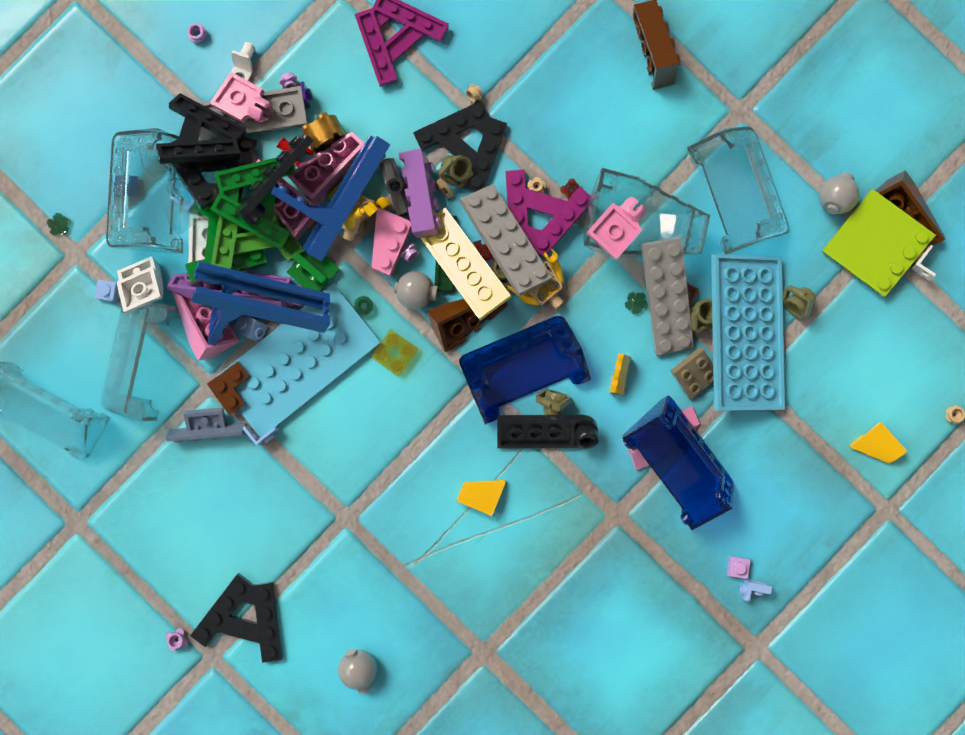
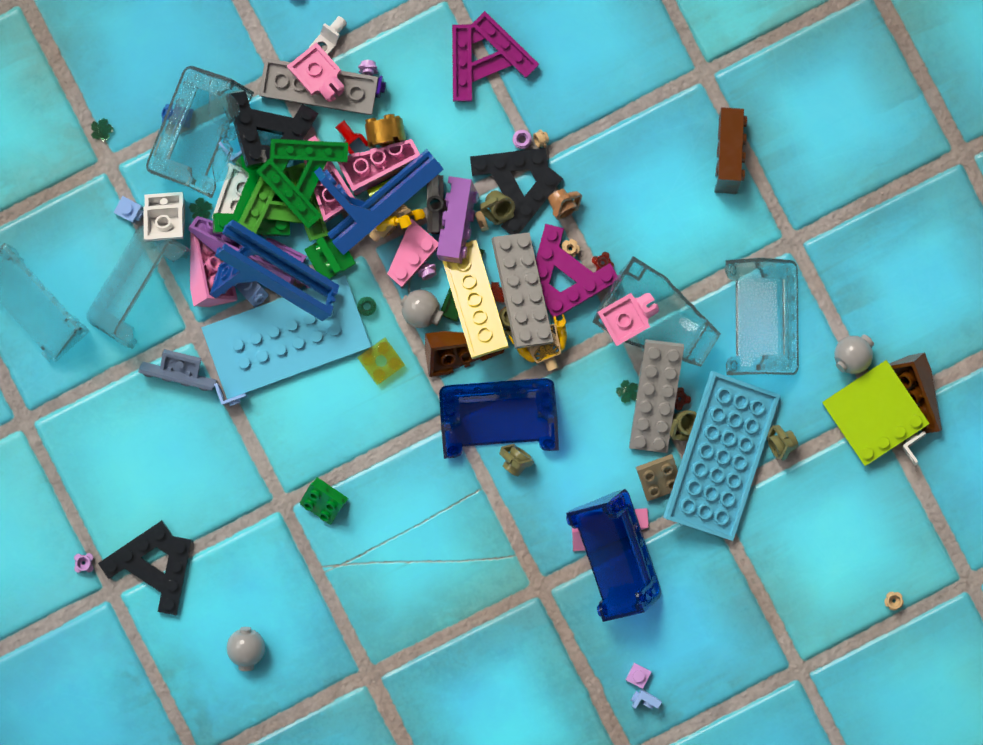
camera: 15 degrees right, 0 degrees up
(176, 266) = (201, 209): none -> clear green plant
(188, 147) = (254, 106): black plate -> none
(225, 387) = (210, 338): reddish brown plate -> none
(250, 208) = (295, 182): black plate -> none
(384, 503) = (323, 500): none -> green bracket
(456, 94) = (524, 133): none -> lavender plate
(481, 495) = (418, 524): yellow slope -> none
(515, 146) = (563, 203): none -> medium nougat piece
(546, 431) = (499, 484): black plate -> none
(620, 374) = (588, 454): yellow slope -> none
(879, 444) = (811, 604): yellow slope -> none

